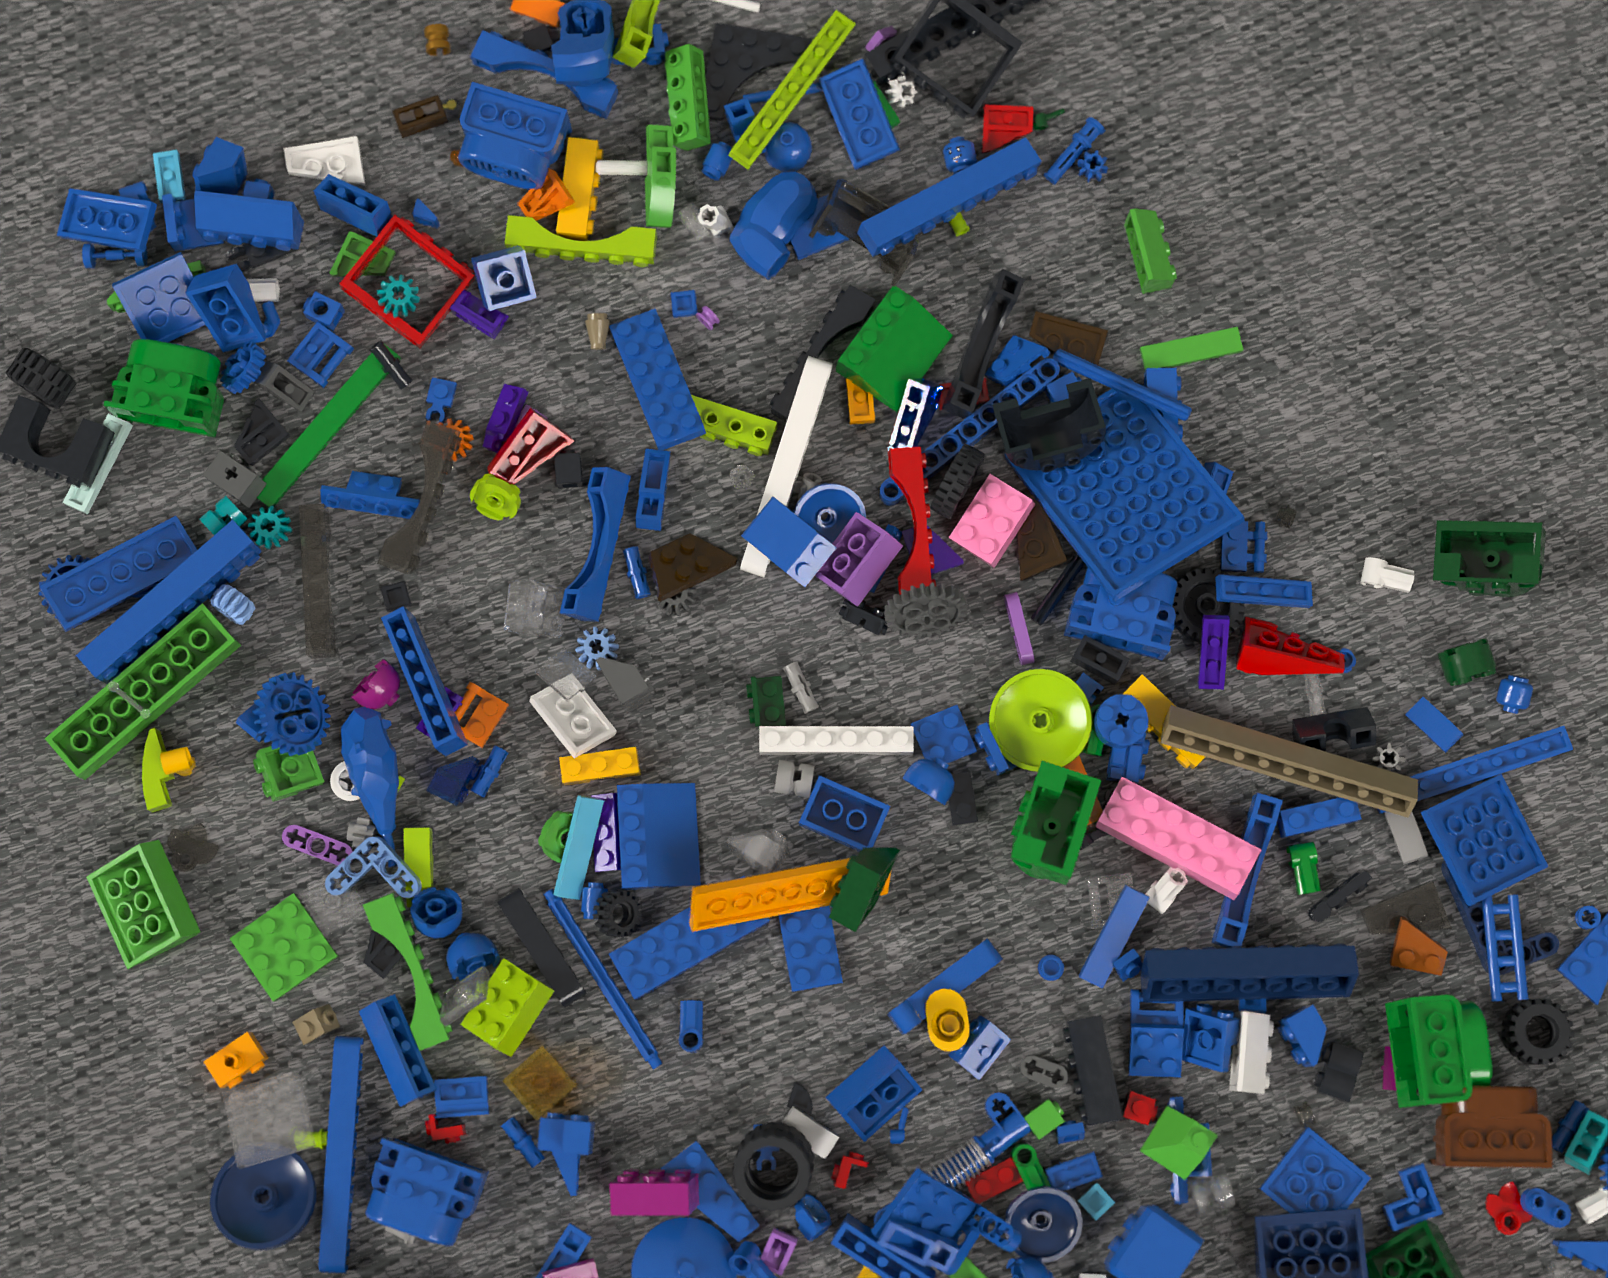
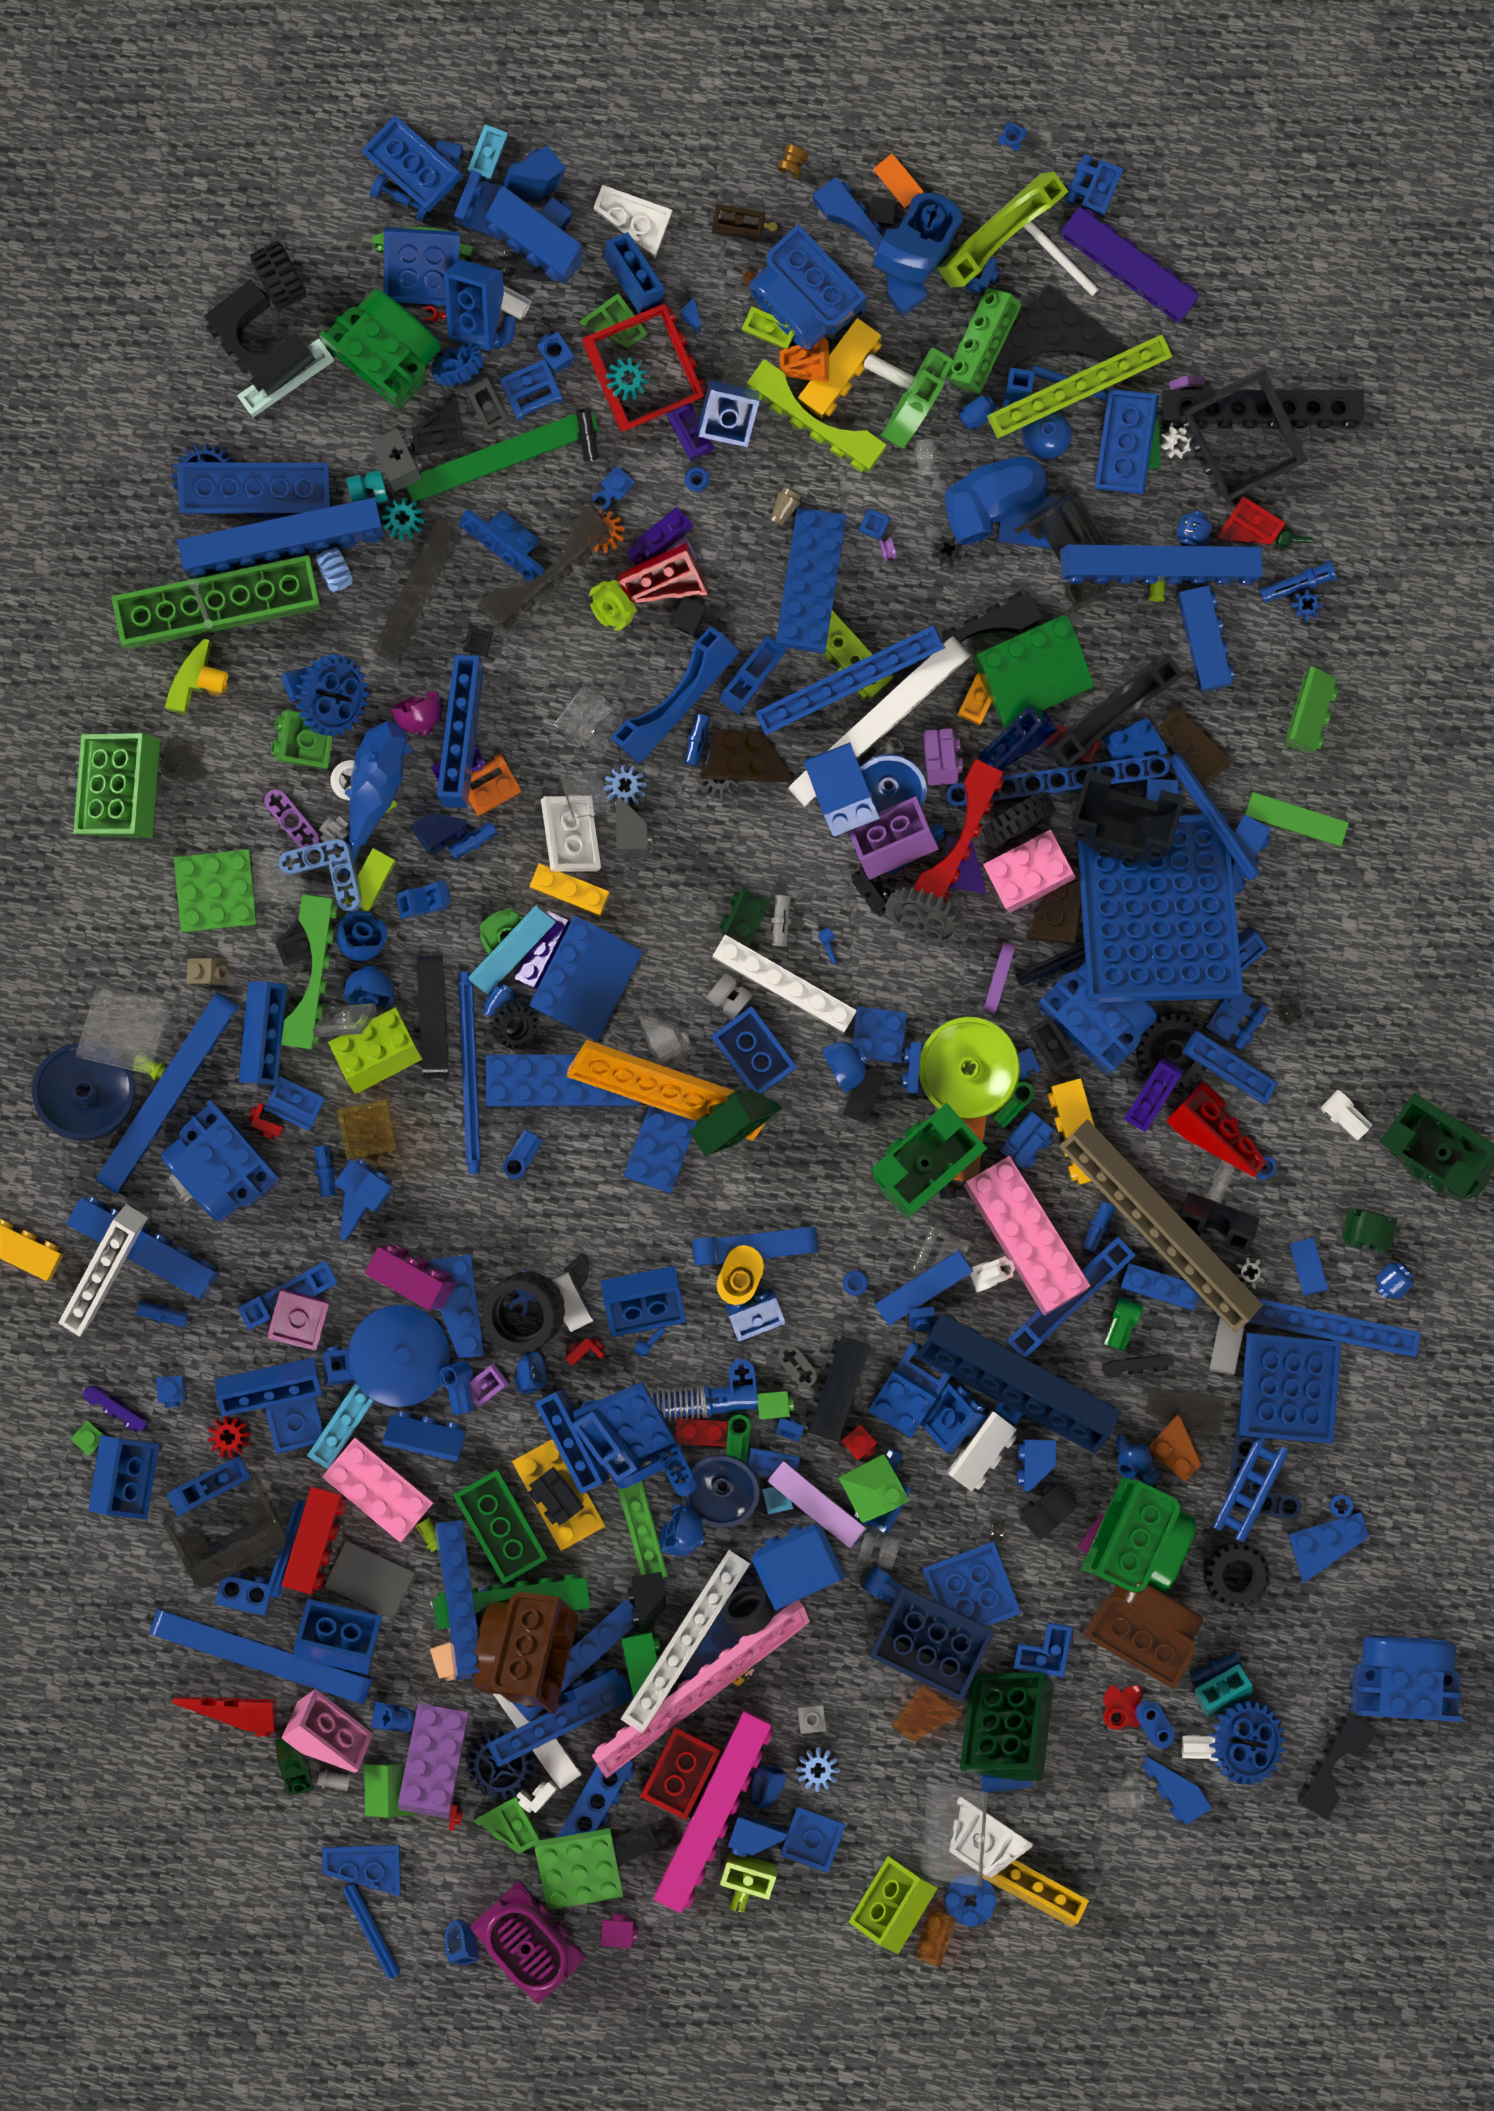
camera: 30 degrees right, 5 degrees up
(201, 338) = (437, 315): none -> red hand
(236, 1060) = (123, 964): light orange brick -> none
(475, 849) = (423, 900): none -> blue brick
(492, 190) = (765, 328): none -> lime plate
(508, 343) = (697, 471): none -> blue plate
(715, 220) = (944, 466): white piece -> none
(741, 444) = (850, 680): none -> blue plate
(760, 297) = (943, 557): none -> black gear
(847, 679) = (825, 937): none -> blue hand
(857, 466) = (941, 756): none -> medium lavender brick
(1024, 241) = (1204, 639): none -> blue brick
(1125, 707) = (1047, 1099): blue brick -> none
(1135, 1186) = (816, 1504): none -> lavender slope
(1233, 795) = (1098, 1227): none -> blue axle
(1234, 1225) = (881, 1585): none -> blue piece
(1389, 982) = (1136, 1461): none -> blue piece

